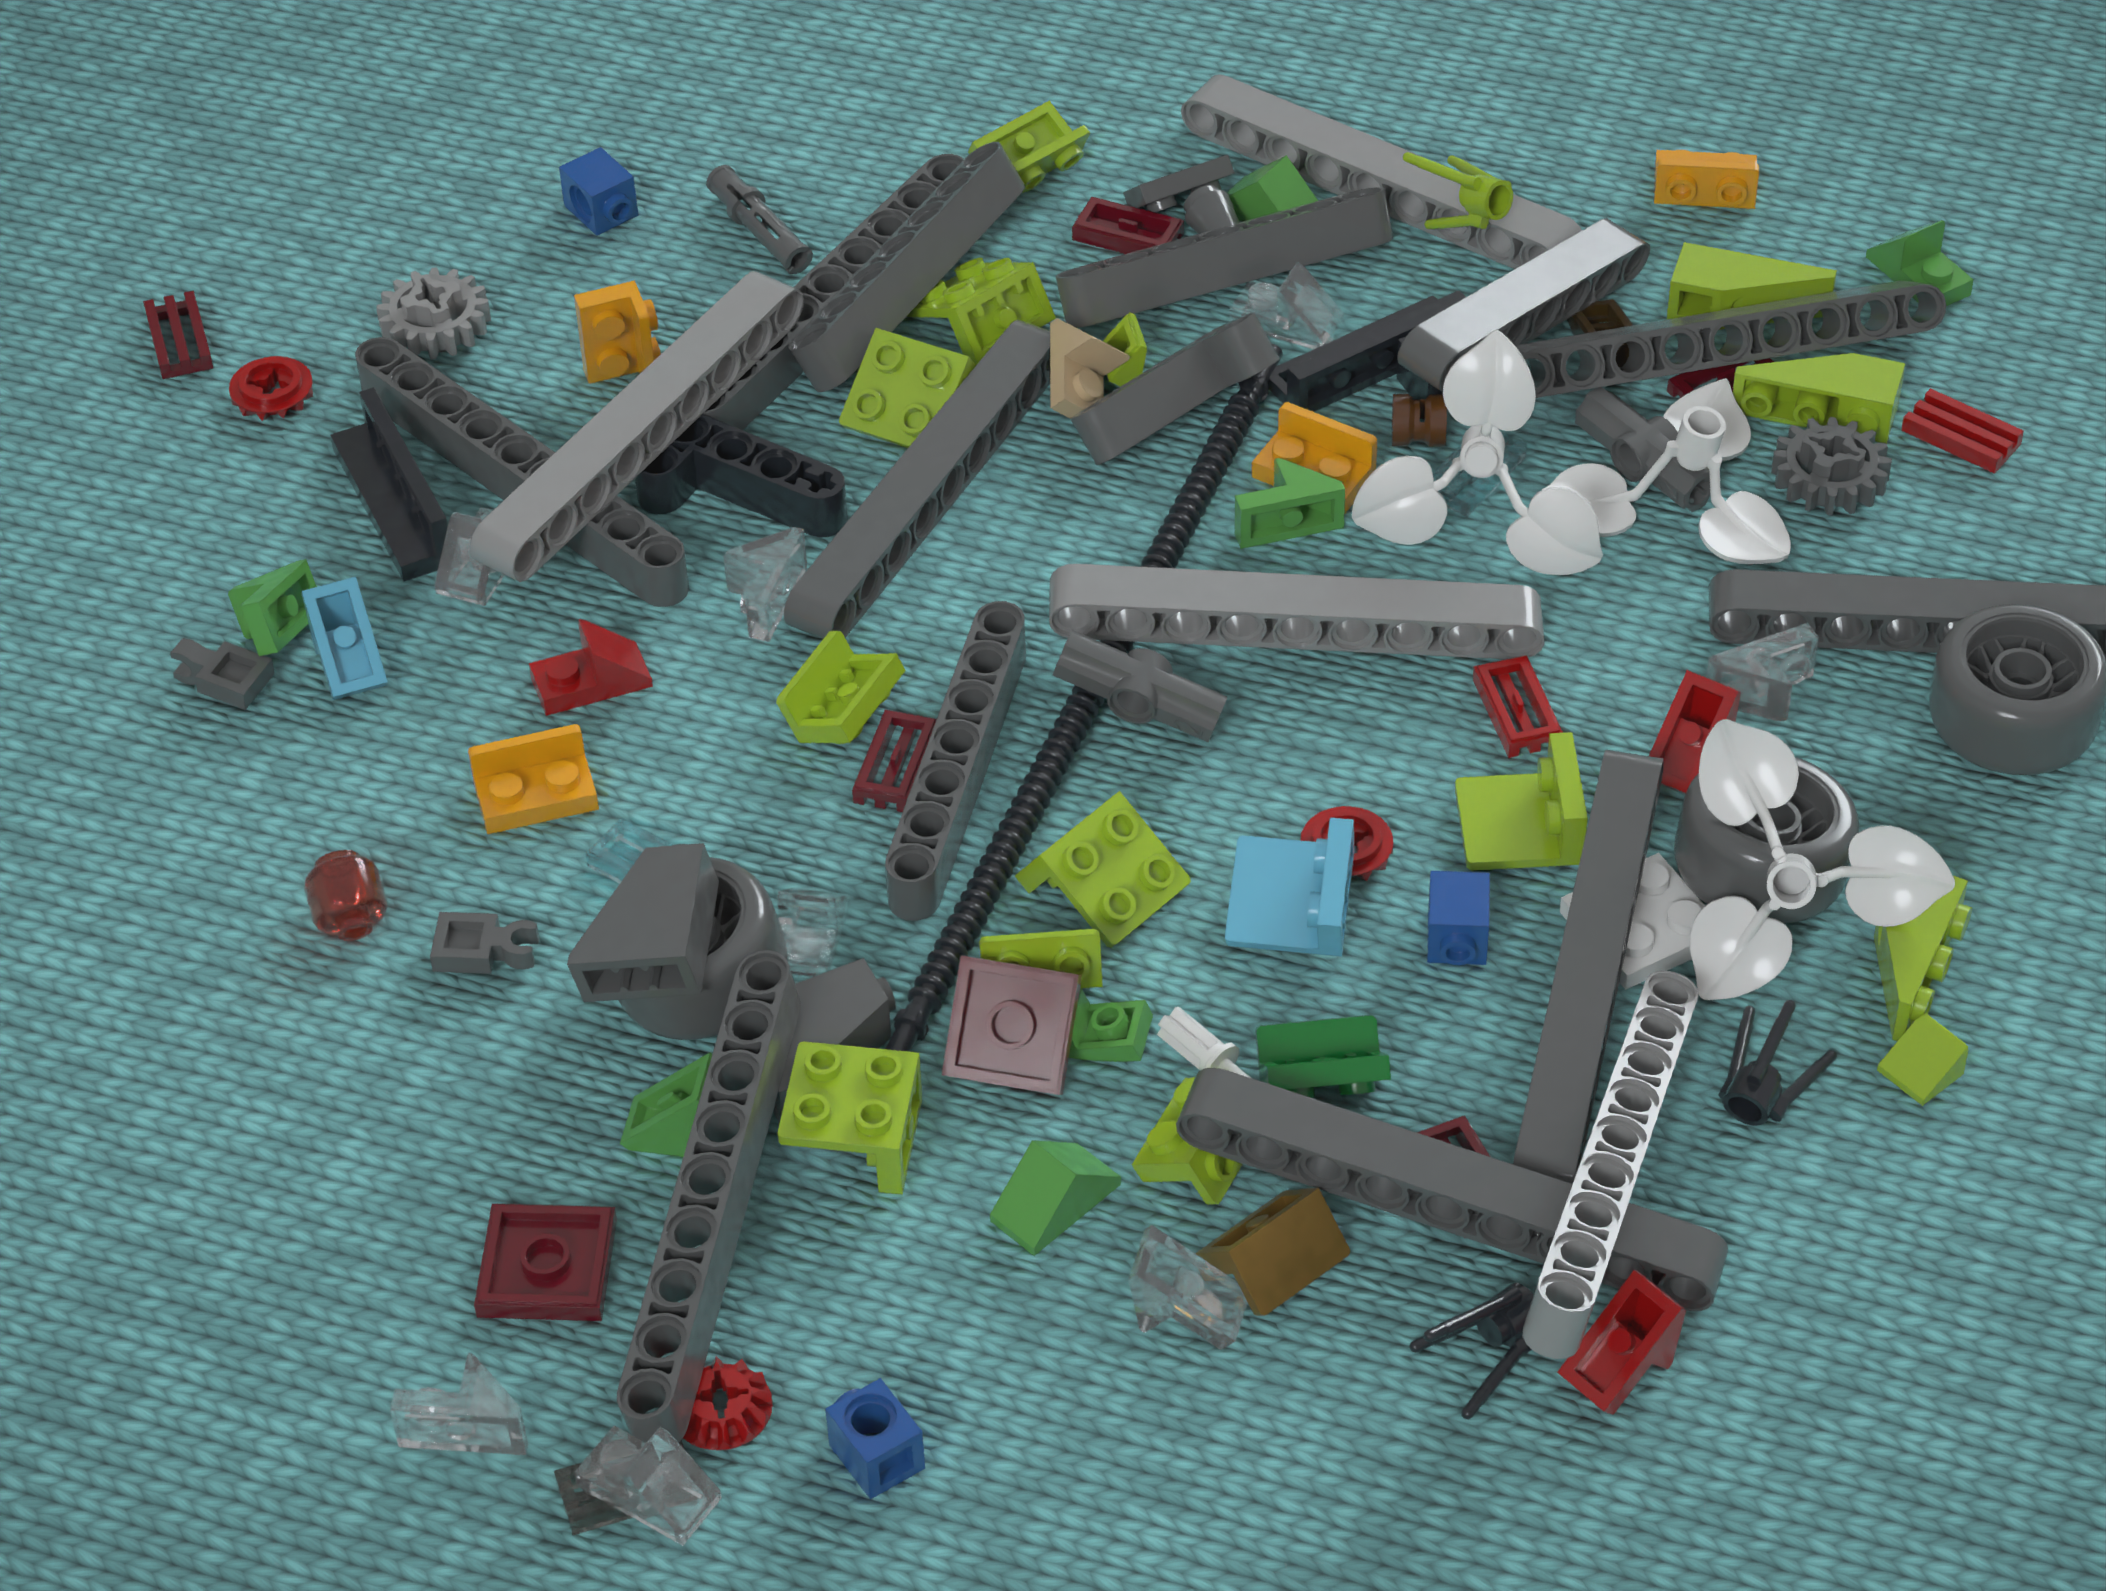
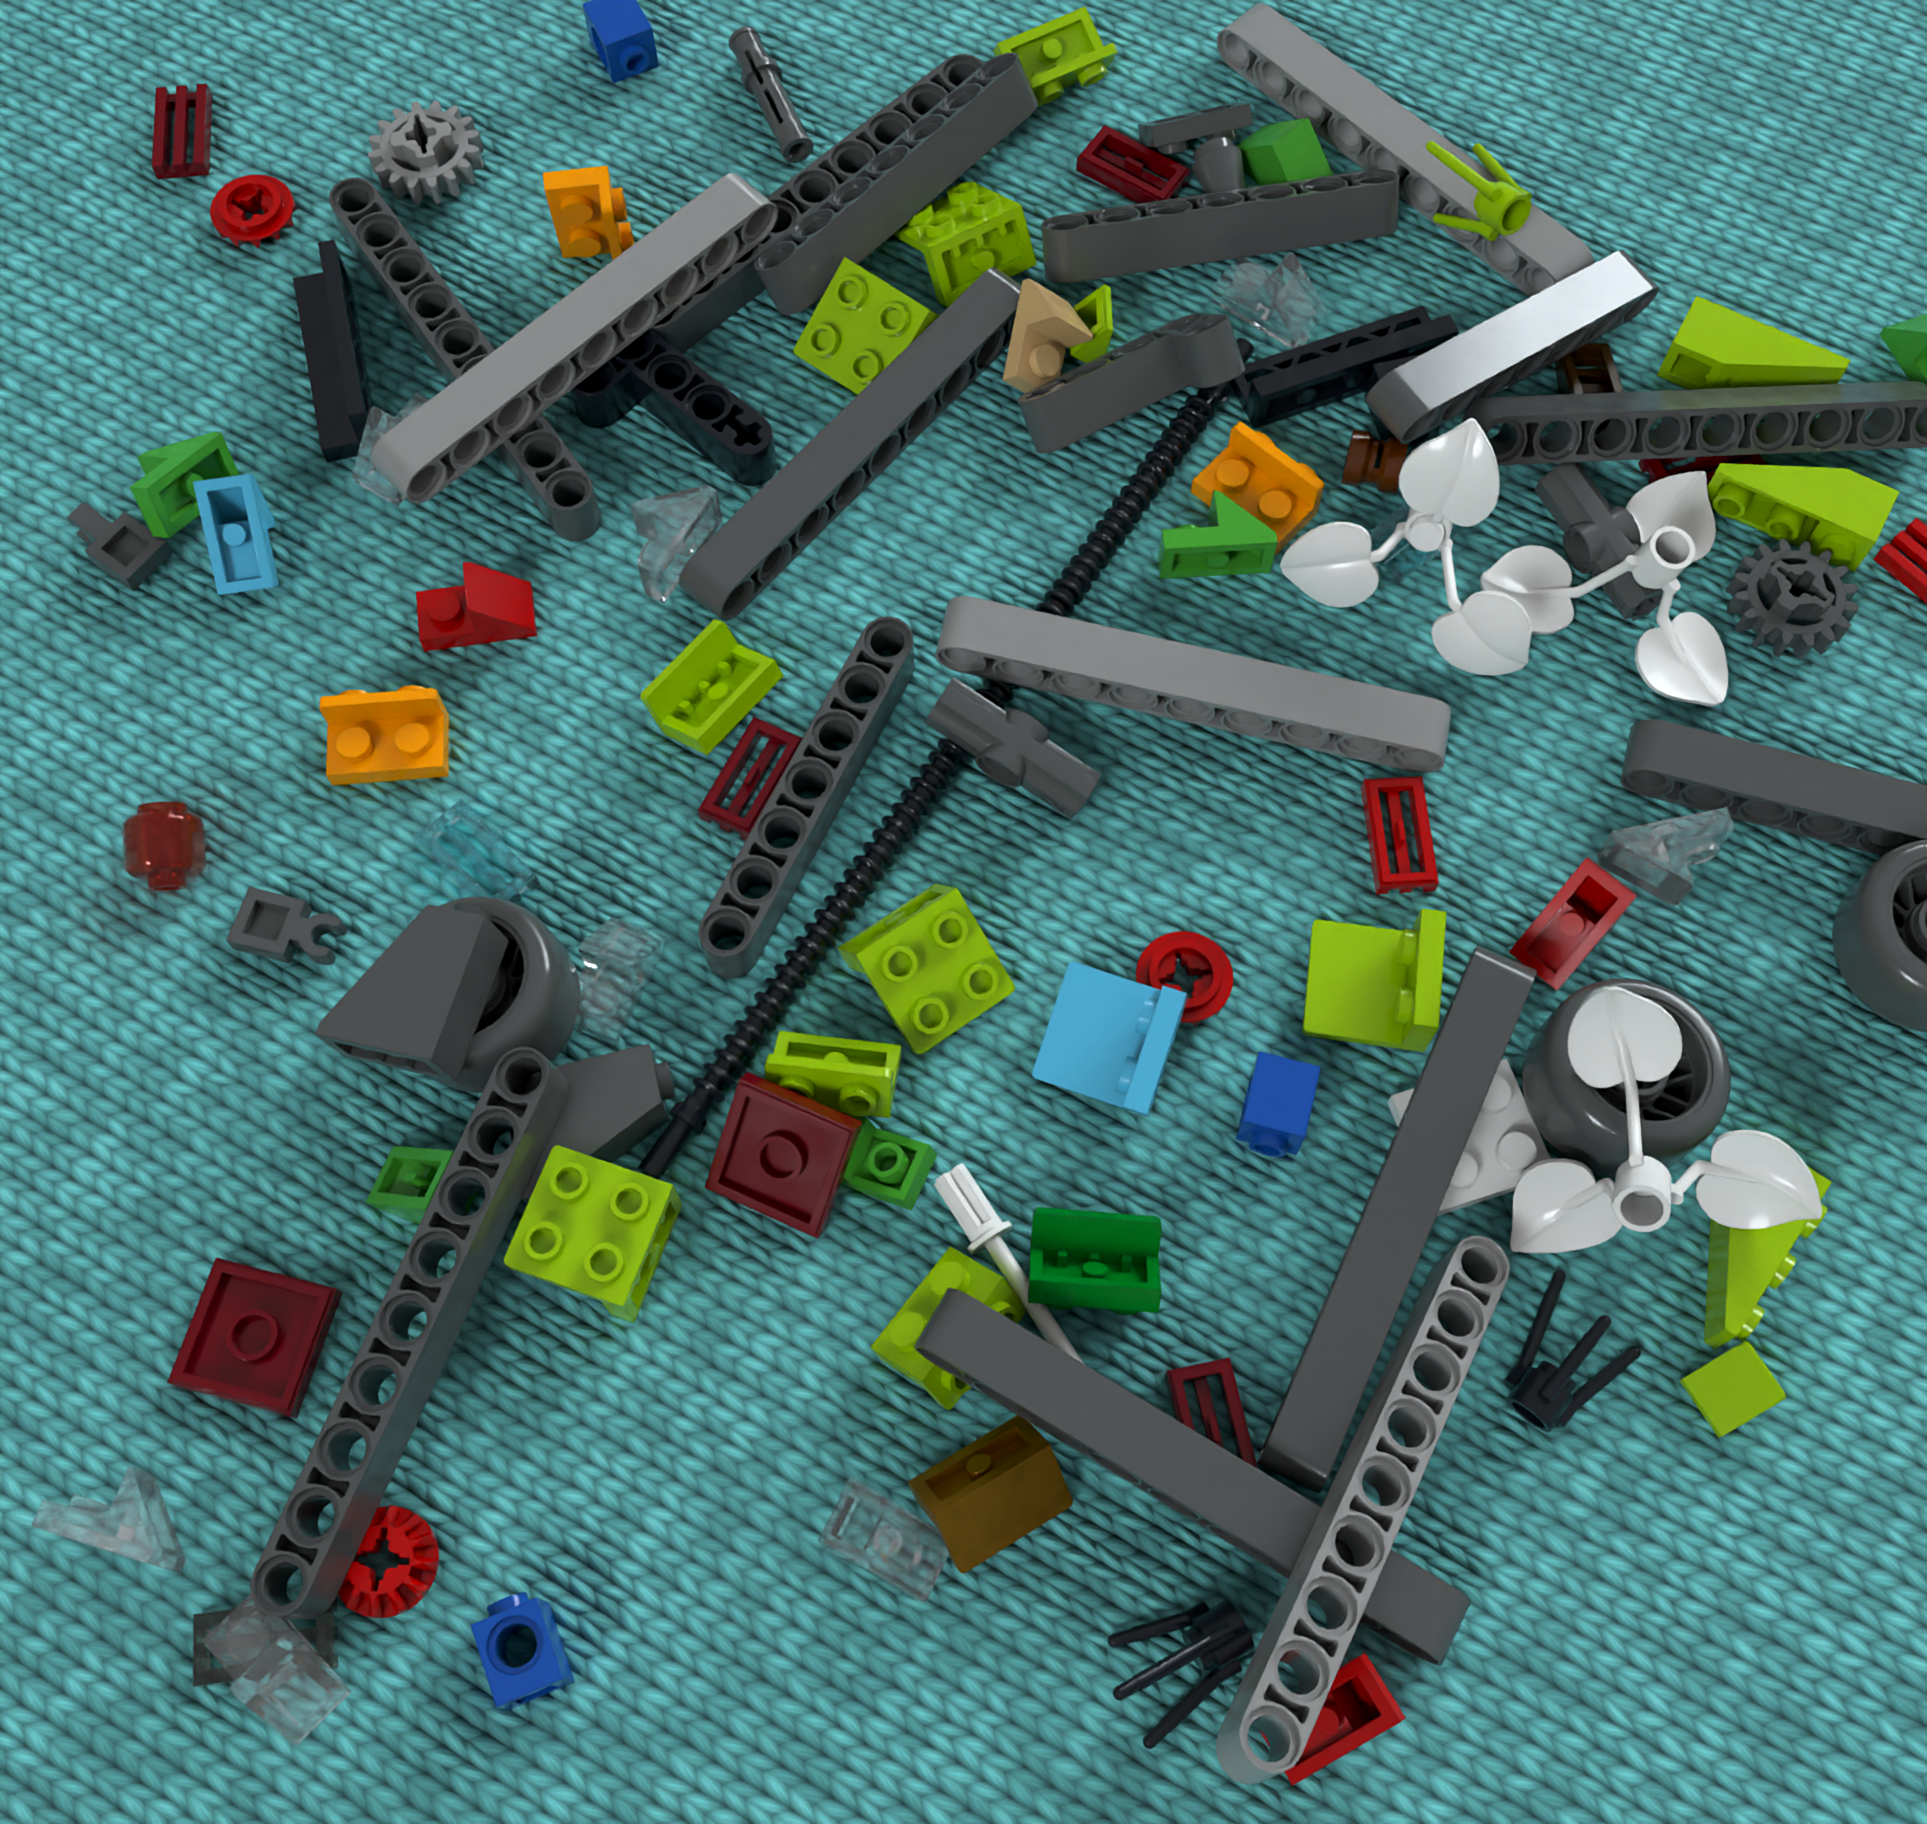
camera: 10 degrees right, 20 degrees up
(1051, 1192) = (784, 1363): bright green slope -> none
(1706, 179) = (1734, 211): light orange bracket -> none

